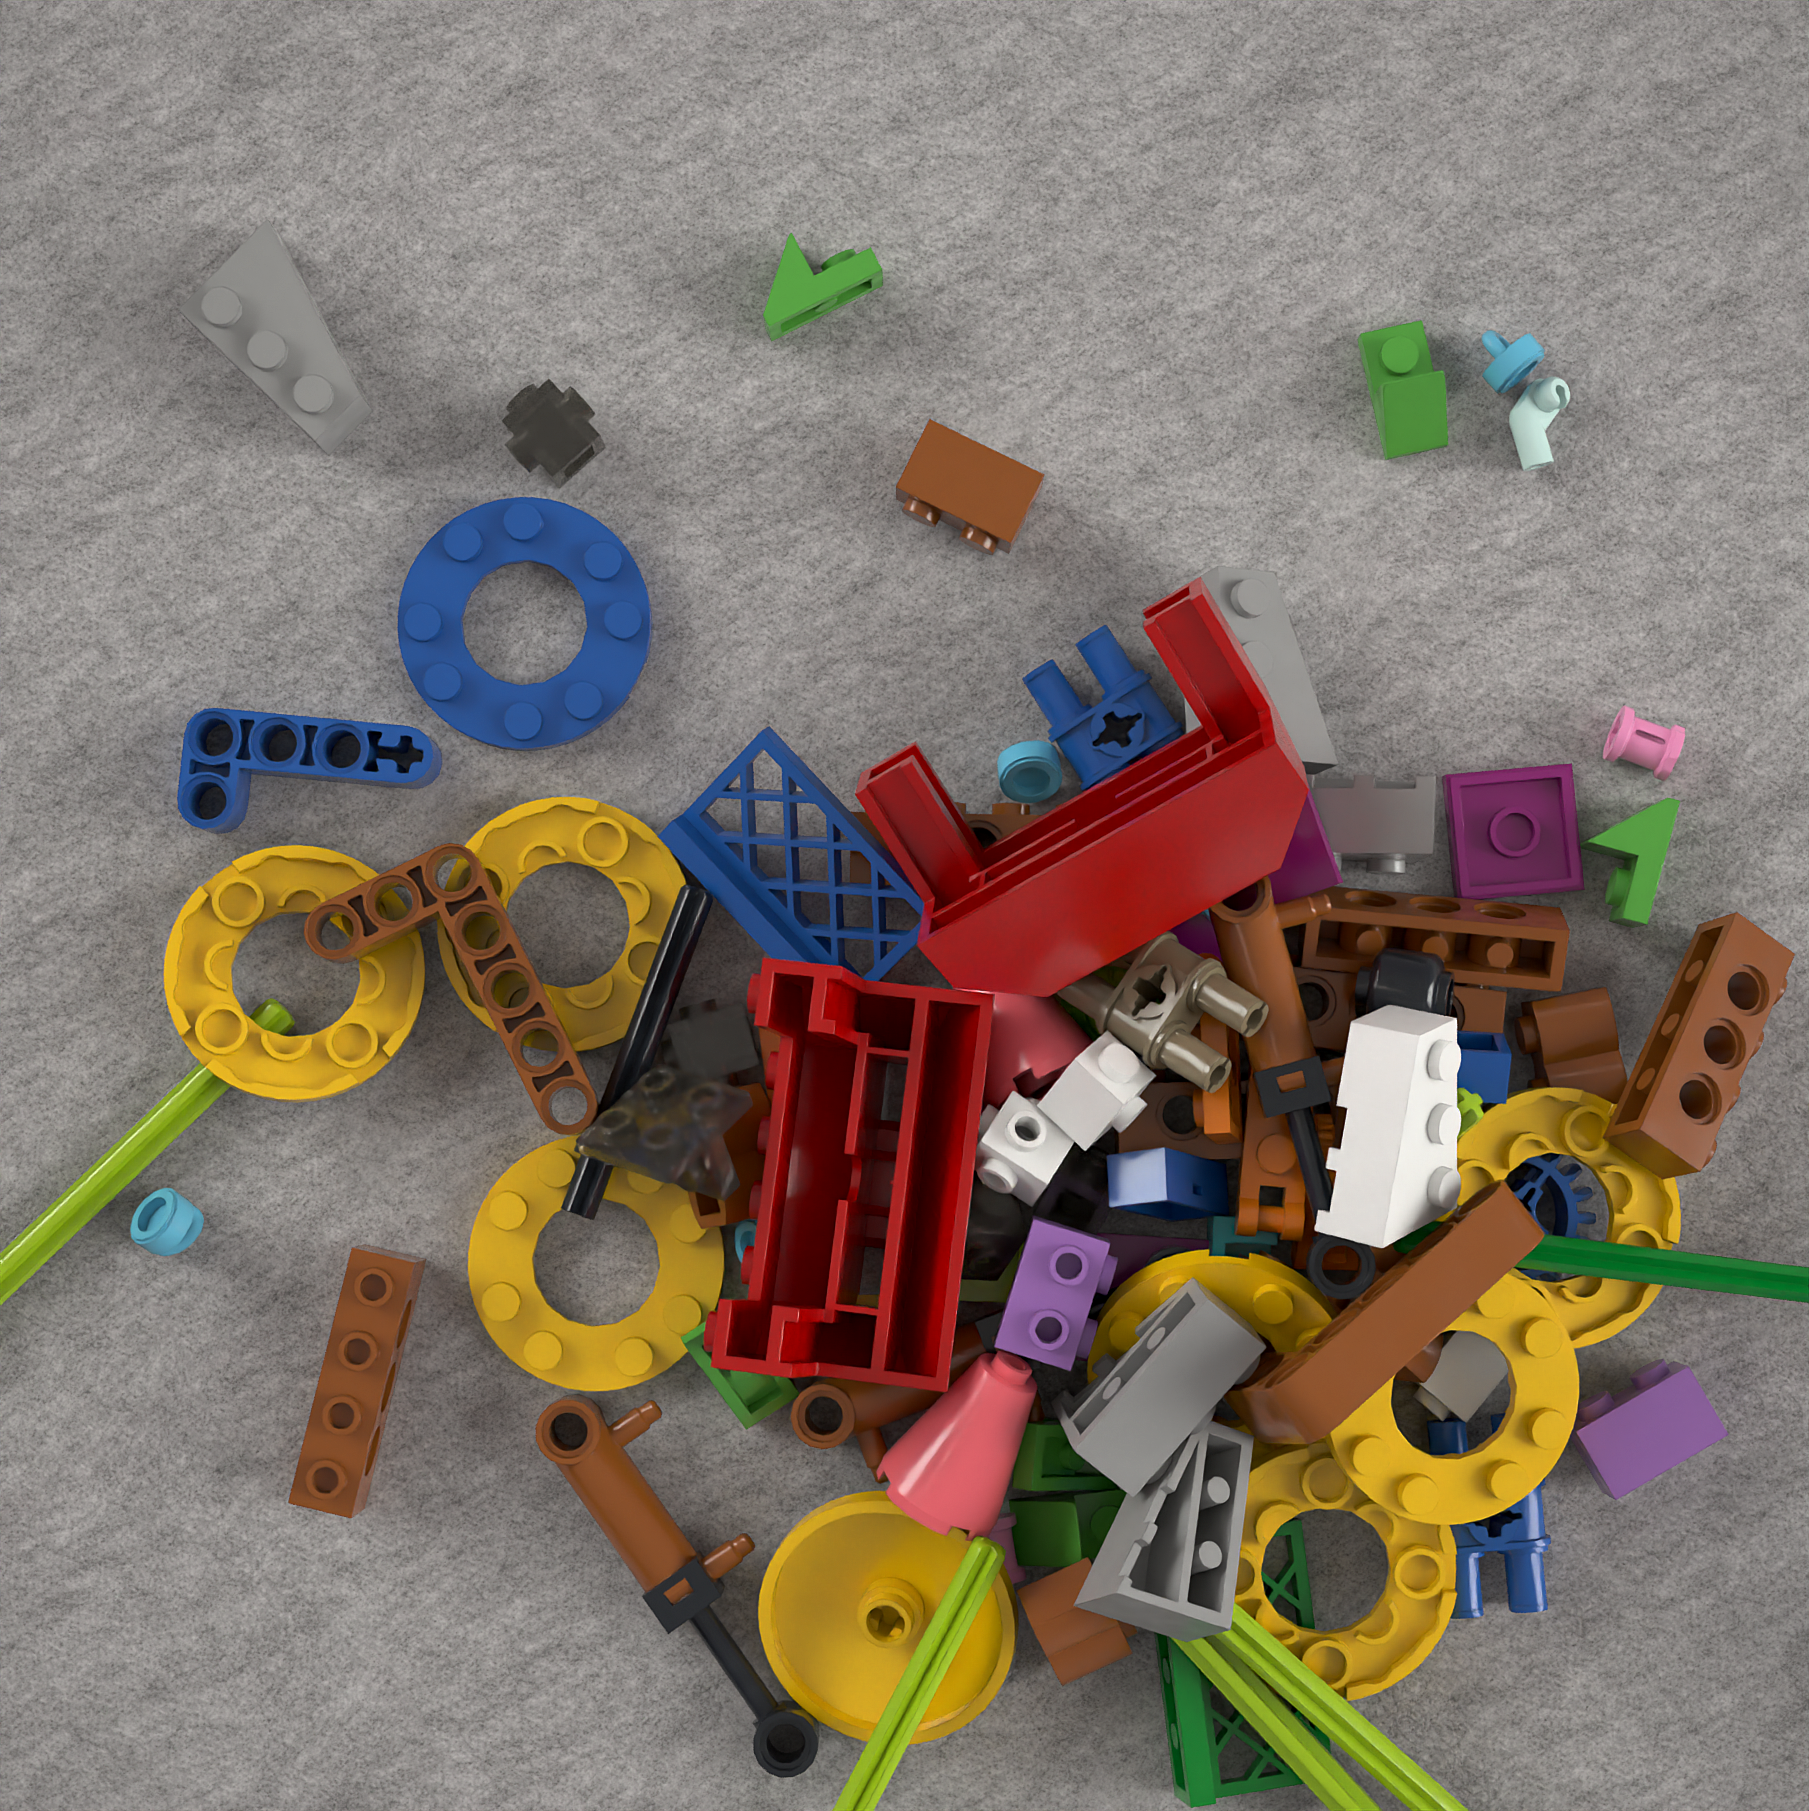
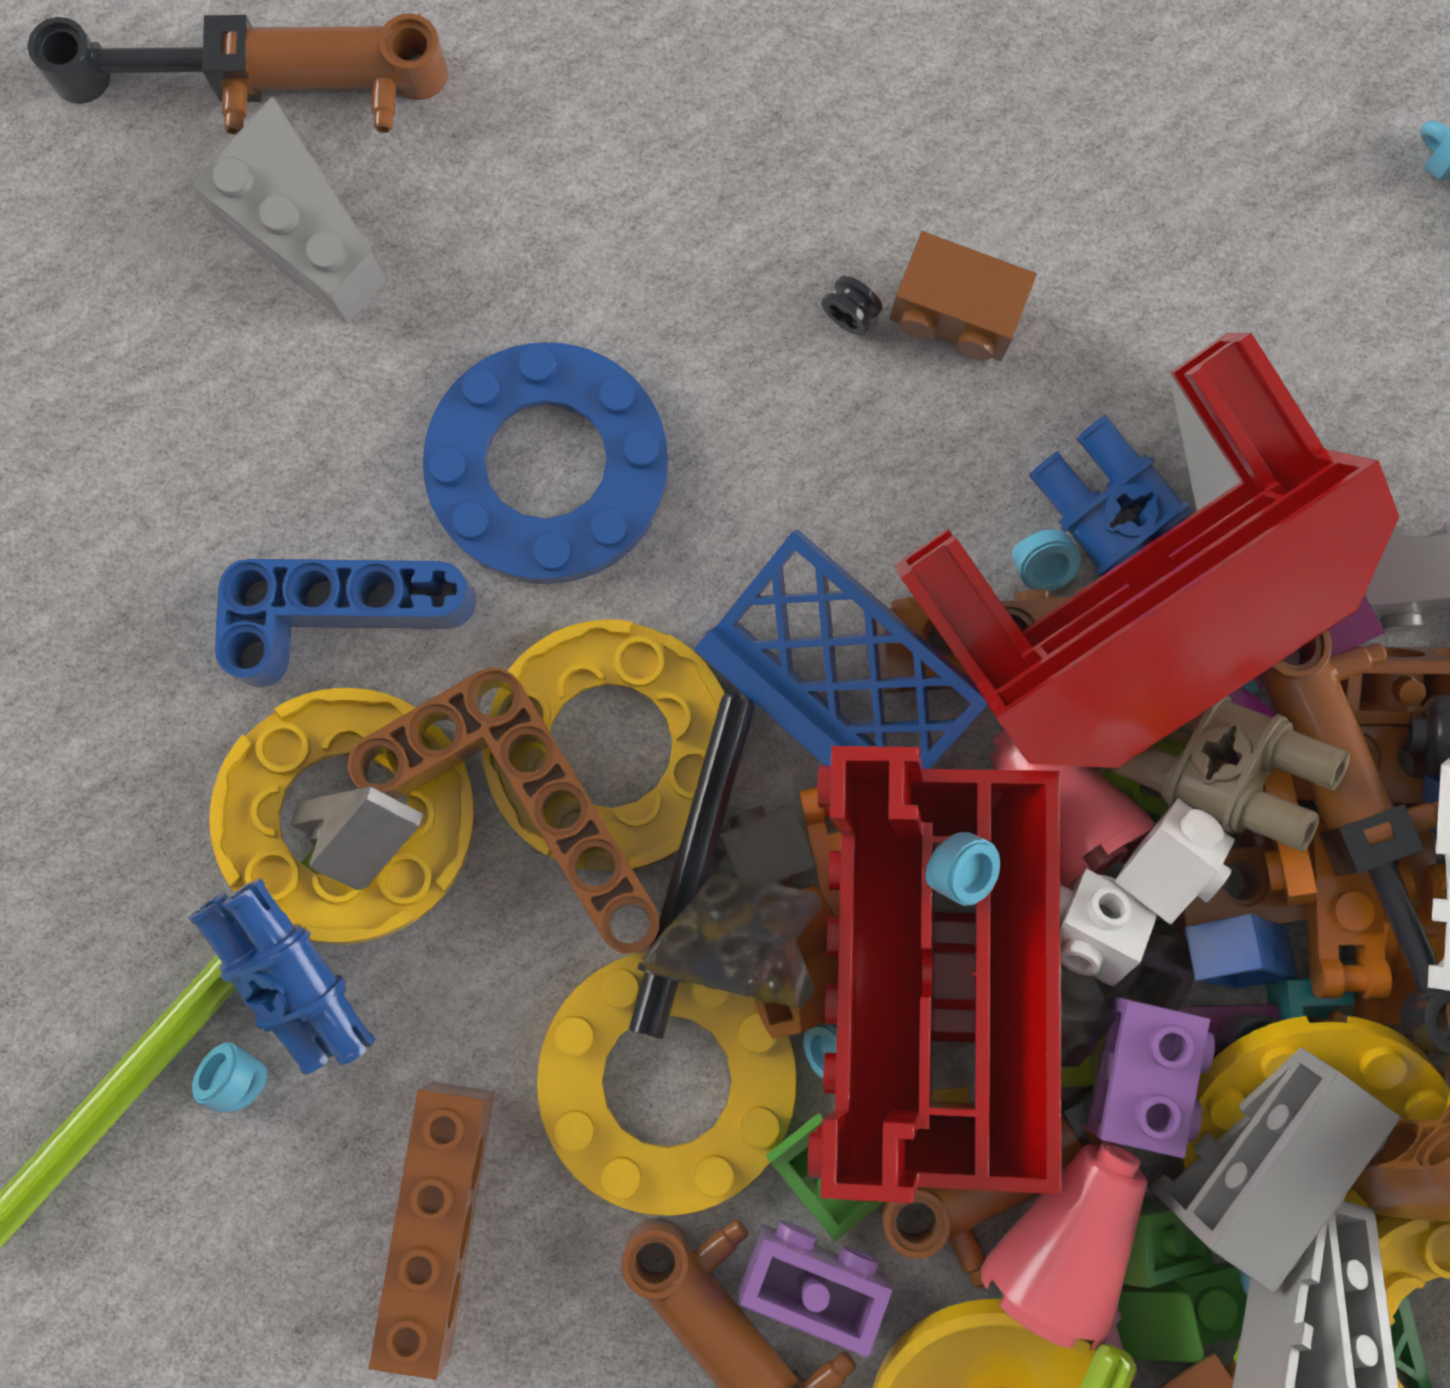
camera: 10 degrees left, 5 degrees down
(226, 1129) = (282, 977): none -> blue pin
(242, 163) = (250, 59): none -> dark orange piece
(305, 994) = (355, 833): none -> flat silver slope
(552, 431) = (559, 279): clear smoke brick -> none
(719, 1467) = (815, 1288): none -> medium lavender brick
(804, 297) = (793, 137): bright green slope -> none
(856, 483) = (852, 305): none -> black bush
(889, 1081) = (963, 868): none -> medium azure tile
(1404, 390) = (1354, 185): bright green slope -> none

